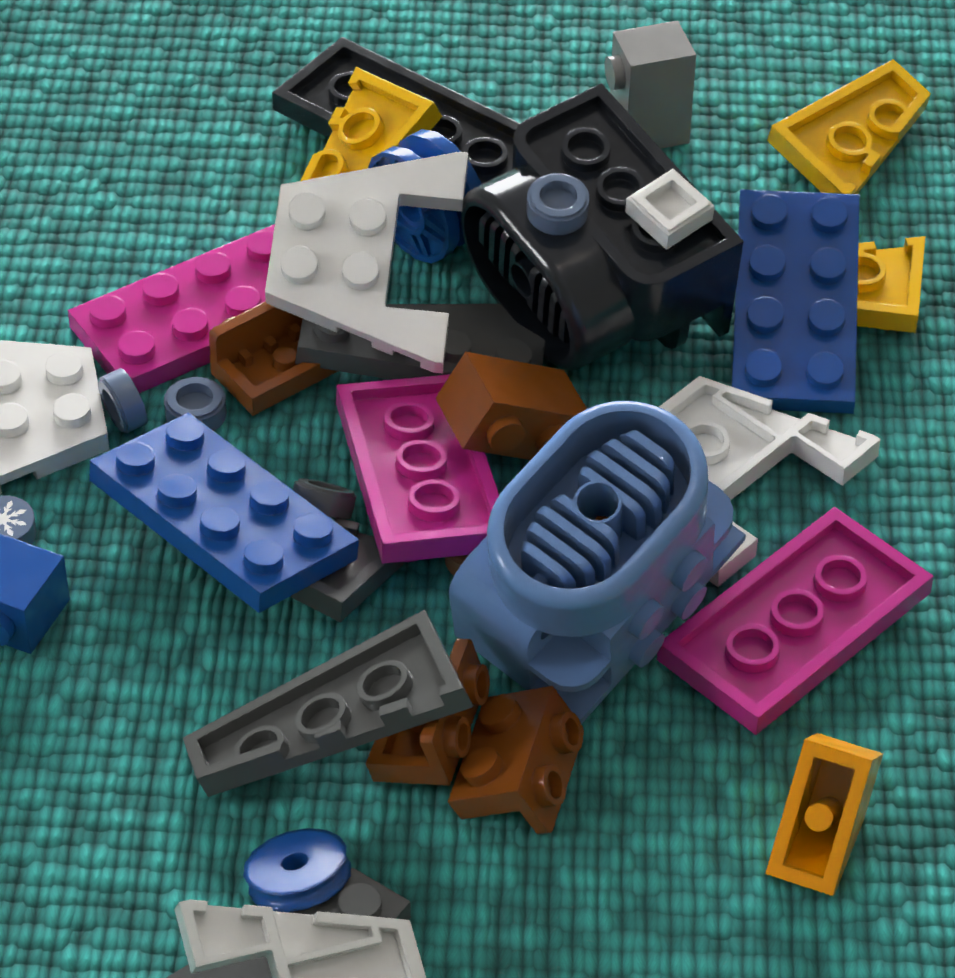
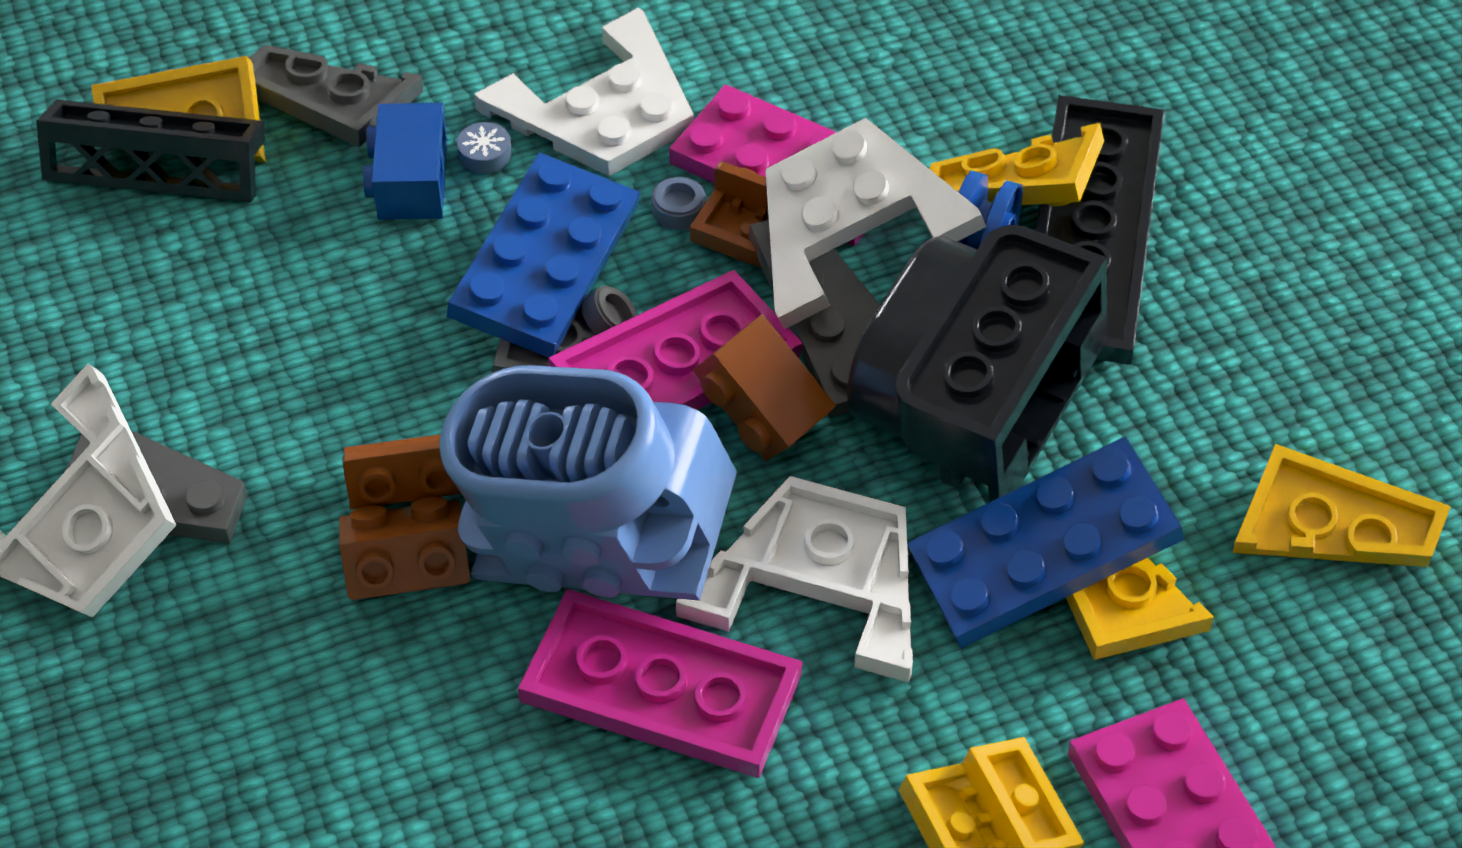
camera: 65 degrees right, 5 degrees up
(122, 401) = (643, 154): sand blue tile -> none
(297, 870) = (225, 449): blue piece -> none
(346, 702) = (364, 398): dark grey wing -> none
(557, 204) = (934, 289): sand blue tile -> none
(654, 79) = (1243, 331): light grey brick -> none
(669, 208) = (985, 368): white tile -> none
(823, 812) = (446, 771): light orange slope -> none

